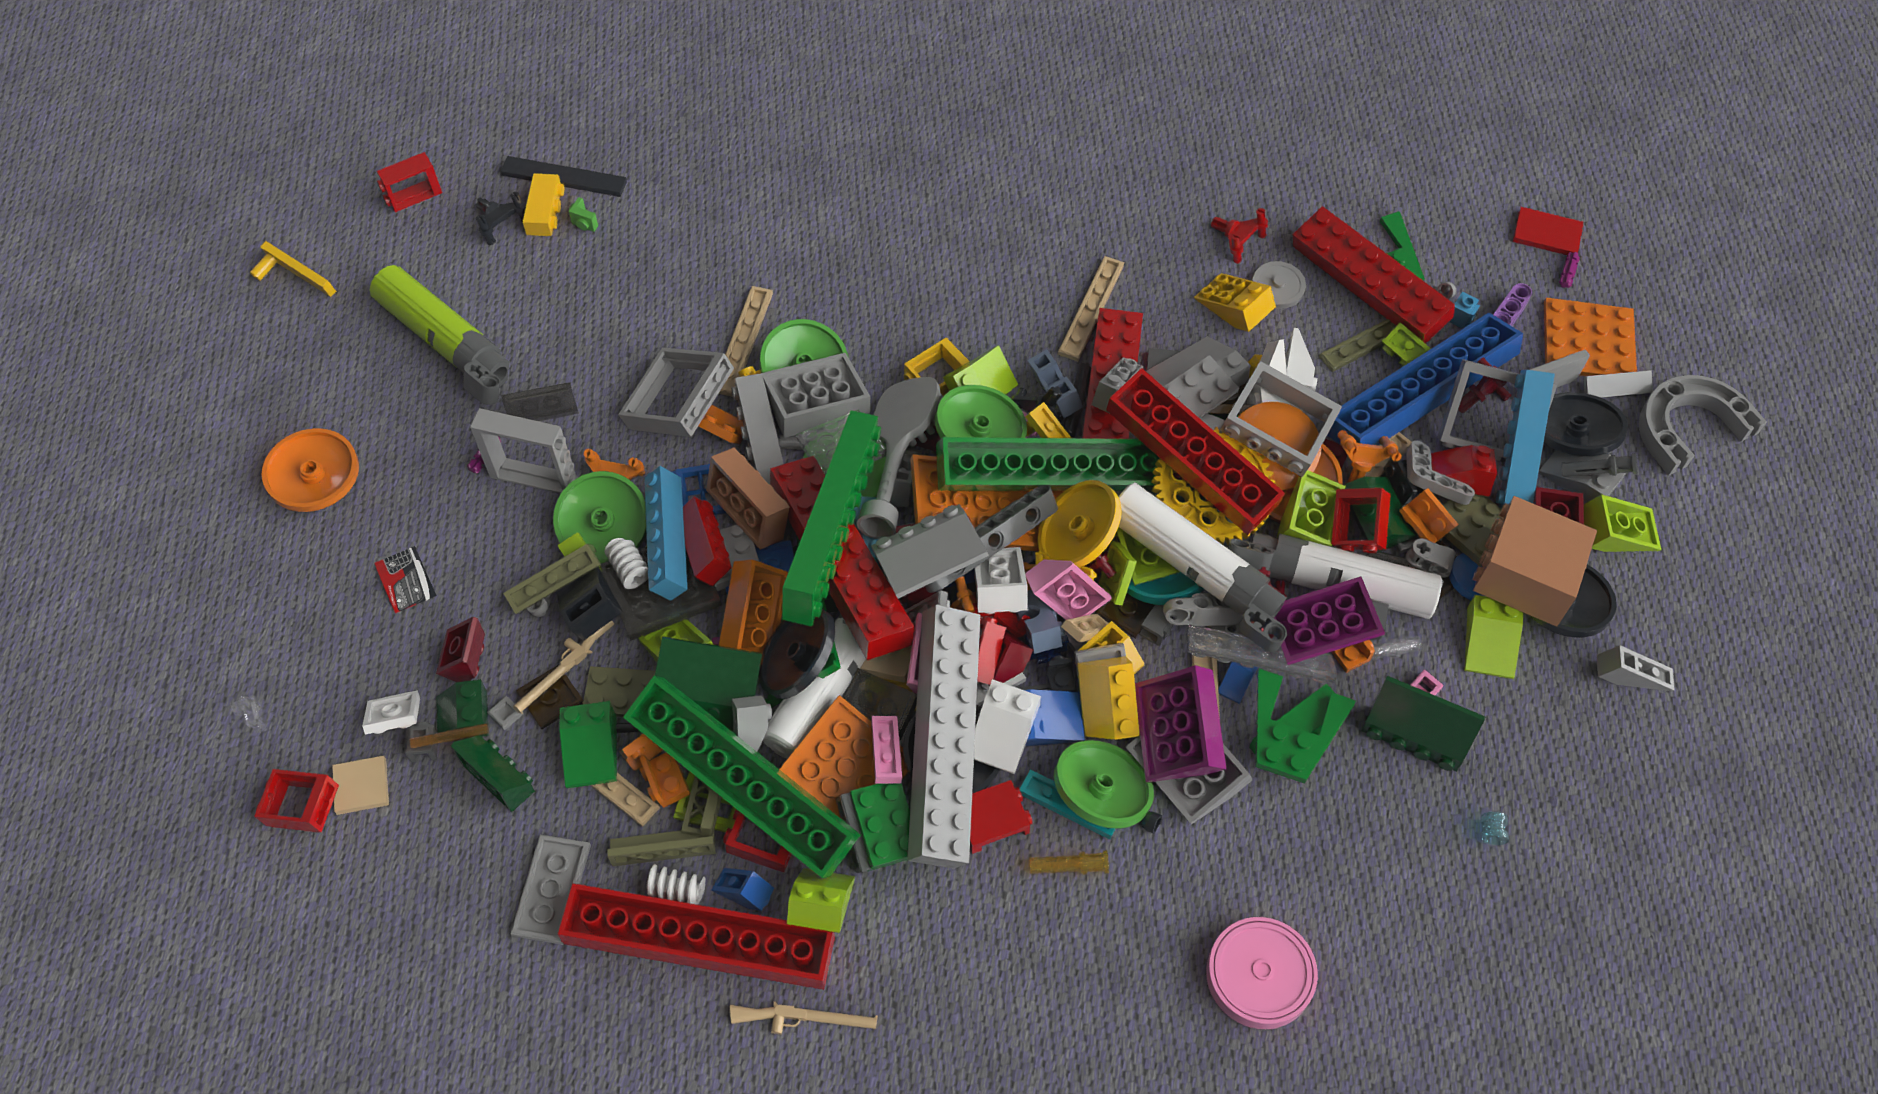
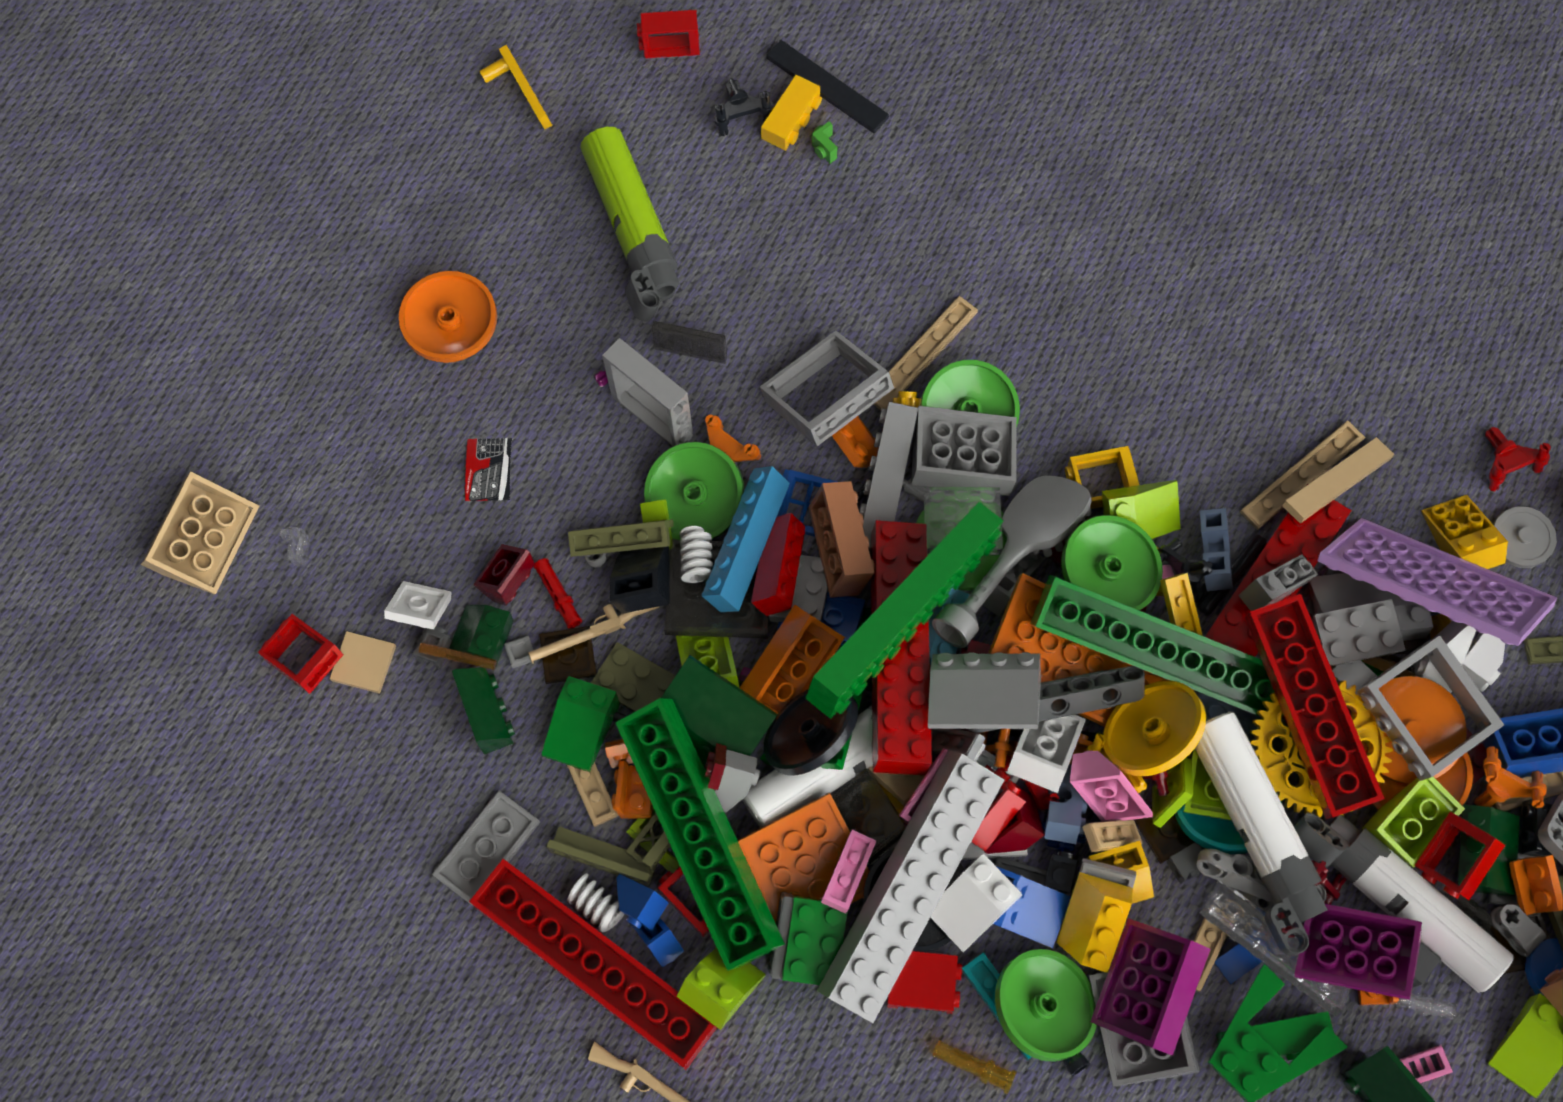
camera: 30 degrees right, 10 degrees up
(150, 743) = (200, 534): none -> tan slope
(523, 654) = (562, 602): none -> red pin
(715, 863) = (639, 903): none -> blue slope
(729, 714) = (715, 766): none -> dark red plate
(1121, 296) = (1338, 480): none -> tan tile
(1236, 329) = (1438, 581): none -> lavender plate

